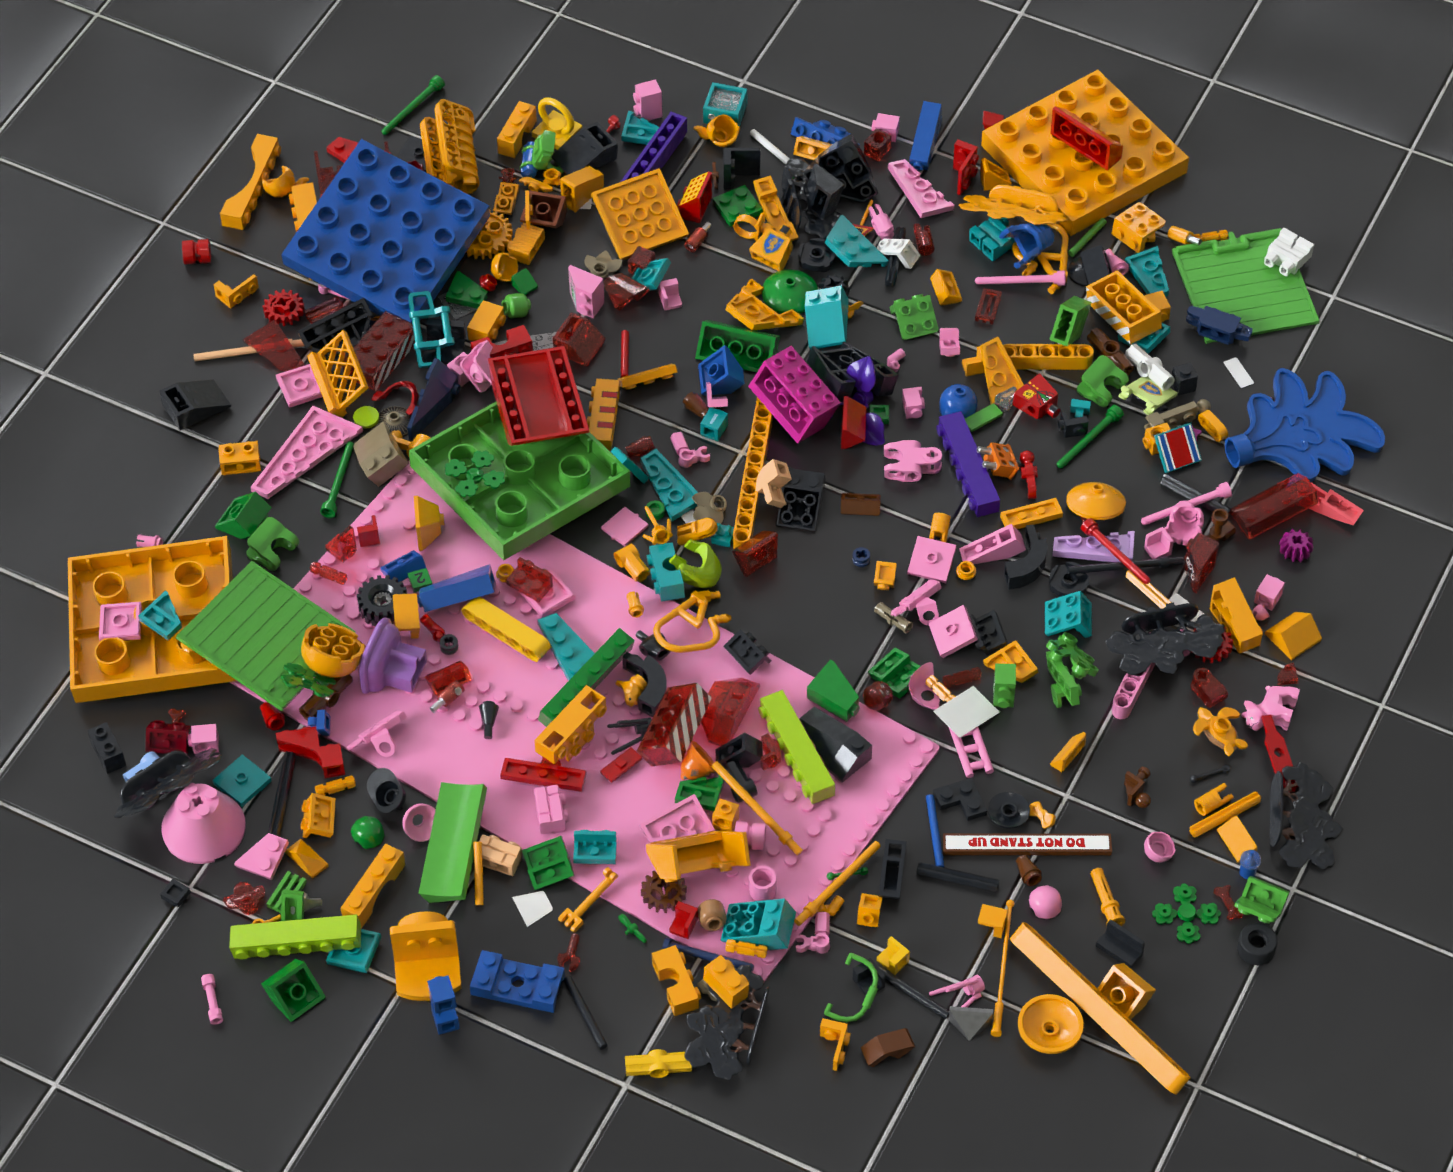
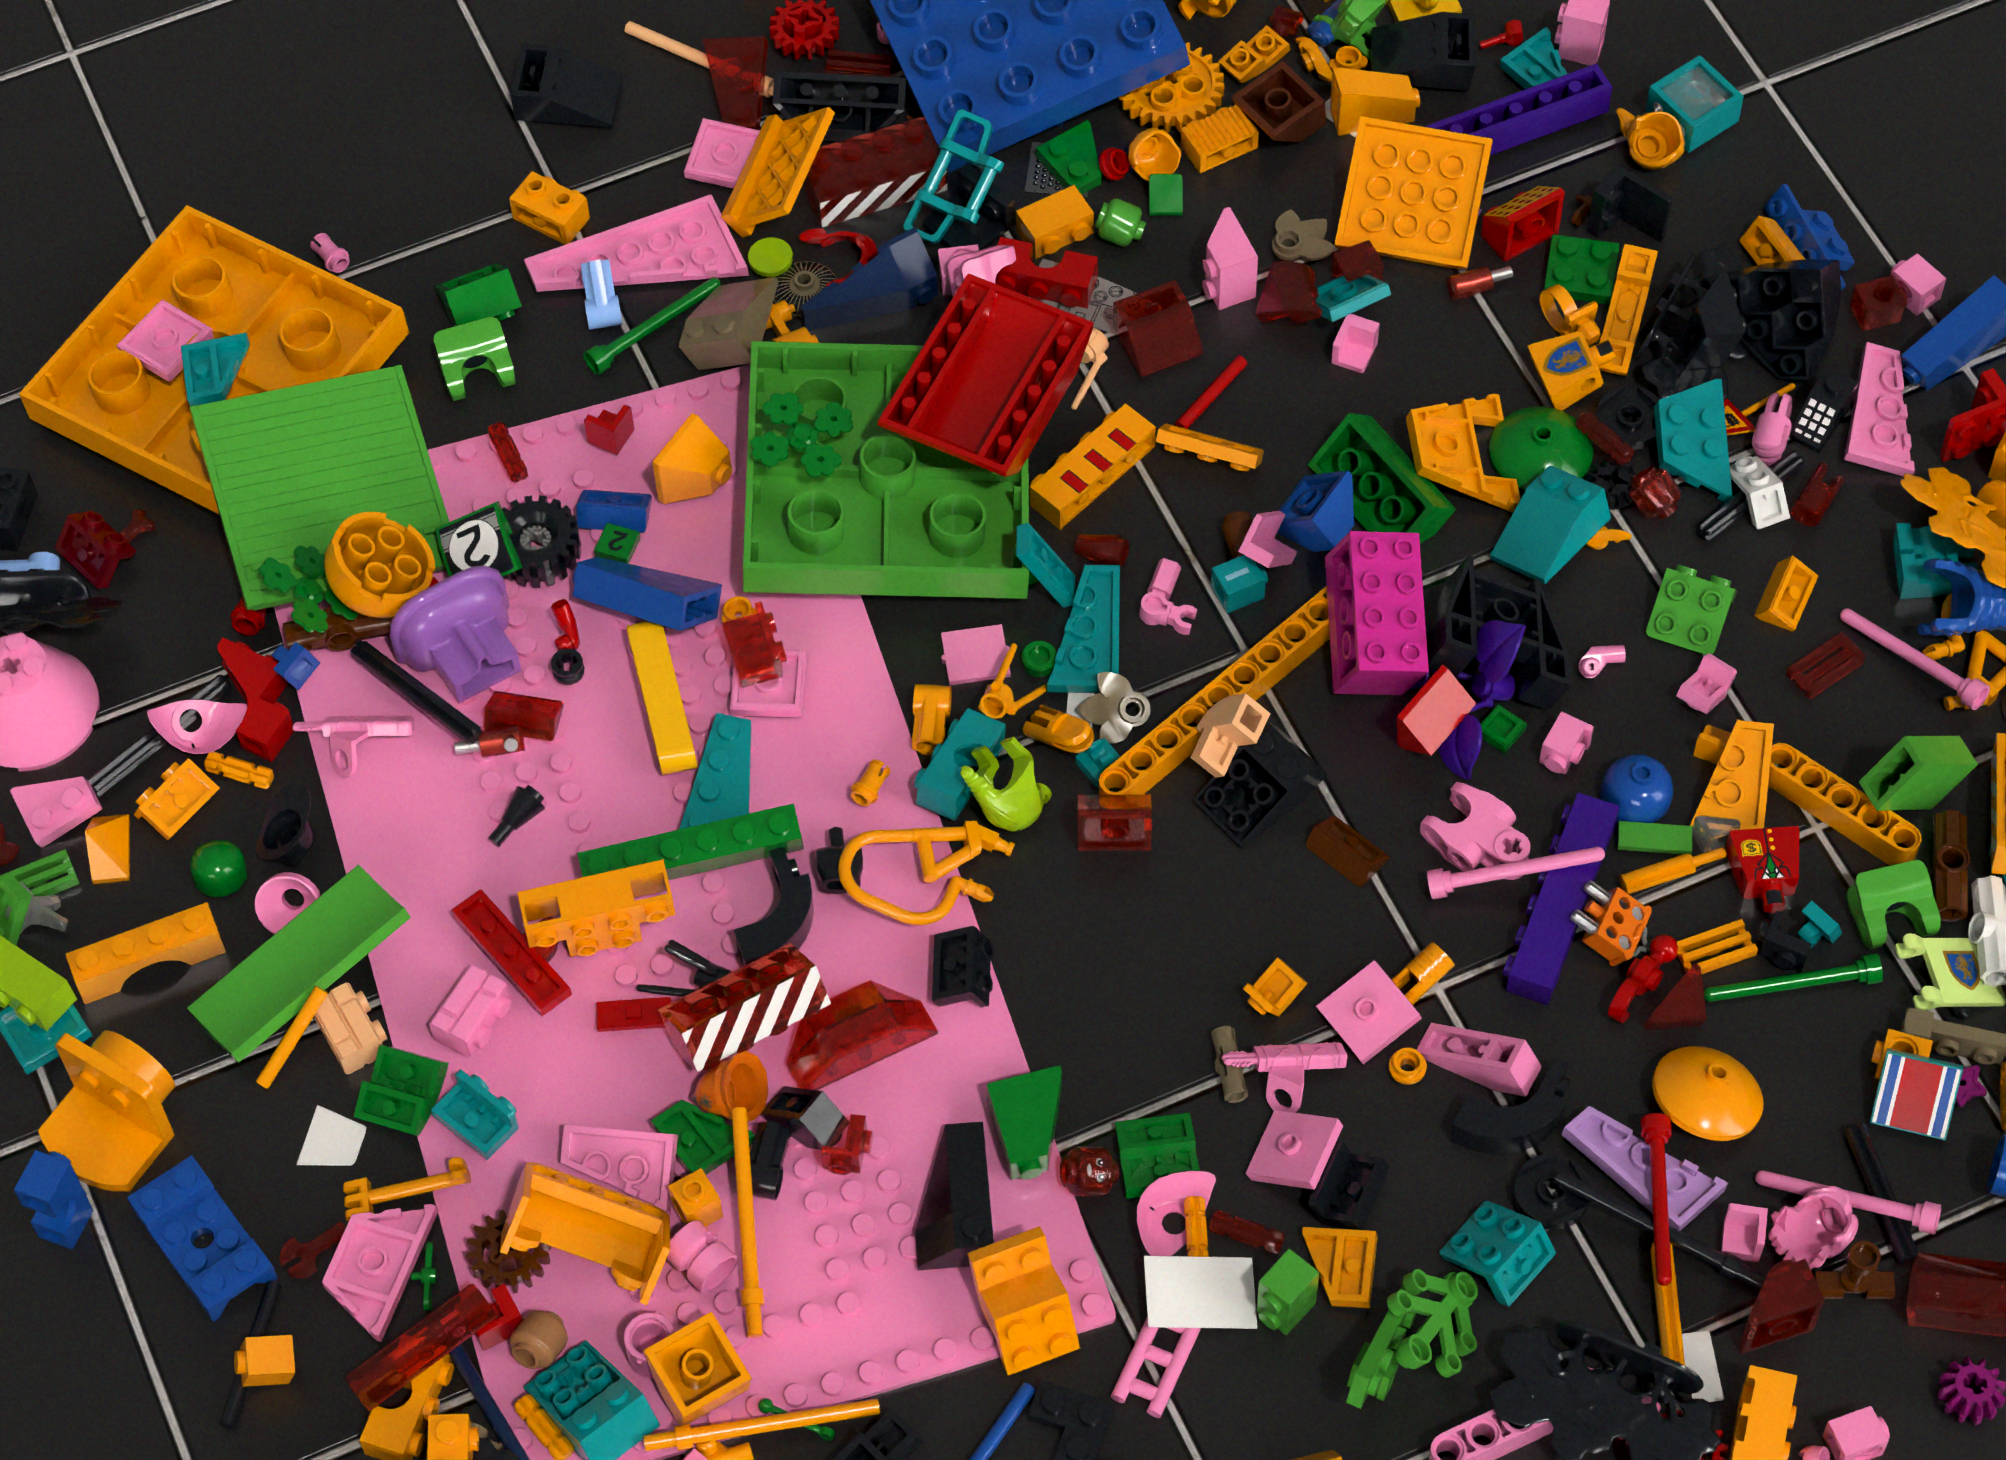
camera: 40 degrees right, 5 degrees up
(203, 738) = (137, 582): bright pink brick -> none
(242, 780) = (132, 676): teal plate -> none
(306, 773) = (217, 725): none -> bright pink piece
(308, 484) = (601, 303): none -> light blue piece
(343, 545) = (557, 424): clear red bracket -> none
(362, 615) = (478, 541): none -> slope
(391, 697) = (416, 691): none -> black axle
(406, 613) = (542, 582): light orange panel -> none
(528, 210) = (1249, 88): light orange piece -> none
(599, 1006) = (265, 1360): none -> light orange brick
(606, 938) = (377, 1263): none -> bright pink wing
(632, 689) = (746, 910): light orange animal -> none
(666, 949) = (420, 1347): none -> clear red panel
(768, 145) = (1712, 205): white bar -> none
(794, 877) = (697, 1369): none -> light orange slope
(797, 747) = (895, 1168): lime brick -> none
(815, 268) = (1605, 438): none -> clear red axle
(857, 278) = (1655, 492): none -> clear red head
(862, 562) = (1264, 942): dark blue bush -> none
(895, 201) = (1824, 410): none -> black slope
(902, 760) = (1023, 1300): none -> light orange bracket
(913, 490) = (1444, 882): none -> bright pink piece
(999, 426) = (1666, 870): none -> light orange axle
(1032, 514) = (1588, 1045): light orange plate -> none
(1052, 434) = (1713, 935): none -> light orange tile
(1054, 472) = (1683, 1005): none -> clear red slope

